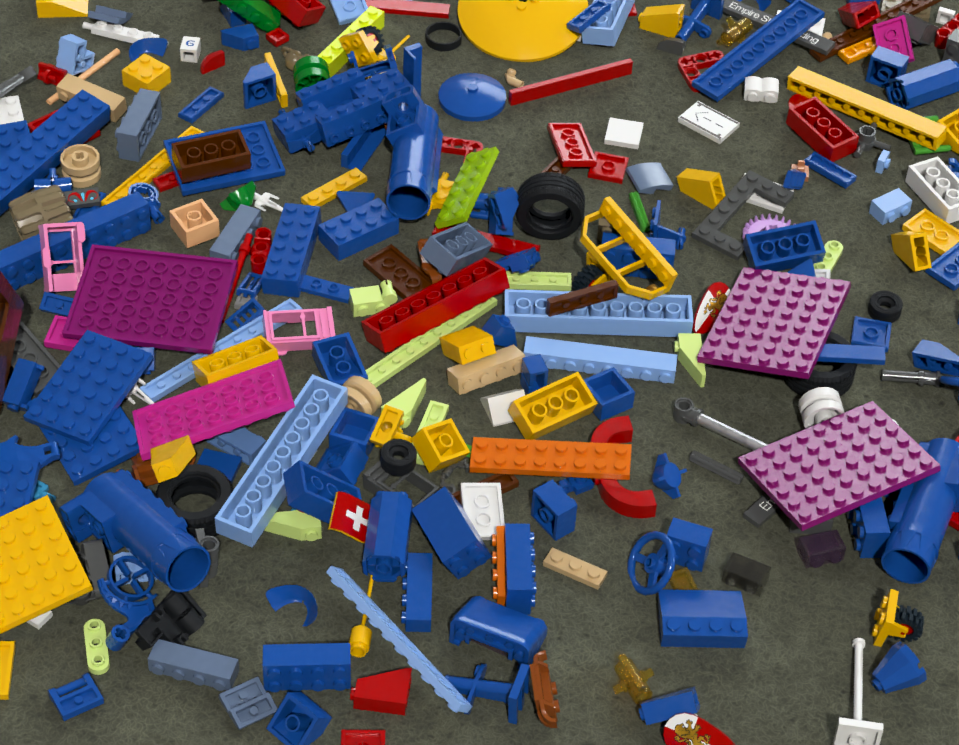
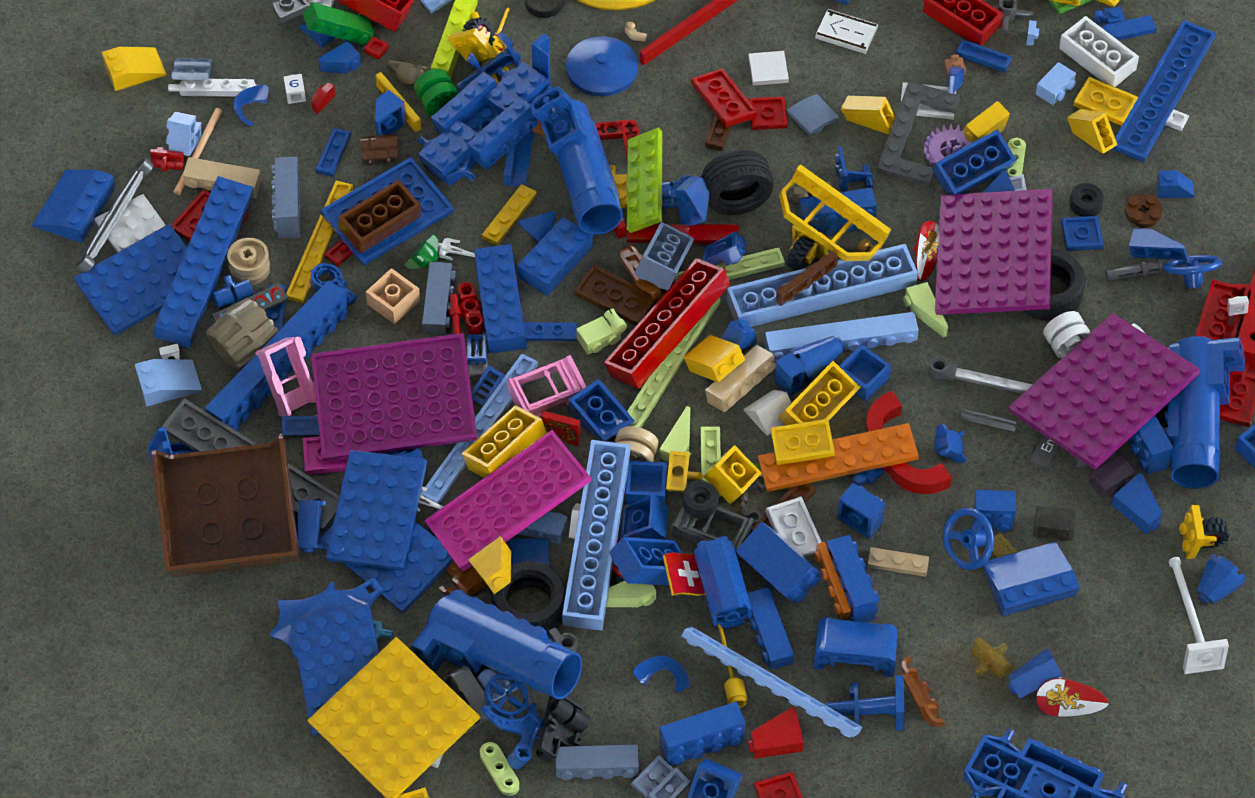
camera: 15 degrees left, 10 degrees up
(146, 74) = (265, 134): yellow brick -> none
(241, 108) = (379, 147): none -> reddish brown brick
(296, 365) = (565, 428): none -> red tile
(429, 220) = (620, 230): none -> red plate
(519, 432) = (802, 441): none -> yellow plate
(564, 364) = (818, 355): none -> blue cone
(639, 212) = (817, 157): bright green axle -> none
(817, 211) = (987, 122): none -> yellow slope
(839, 579) = (1138, 504): none -> blue slope
(853, 354) = (1080, 268): tile -> none
(946, 324) = (1147, 202): none -> reddish brown plate

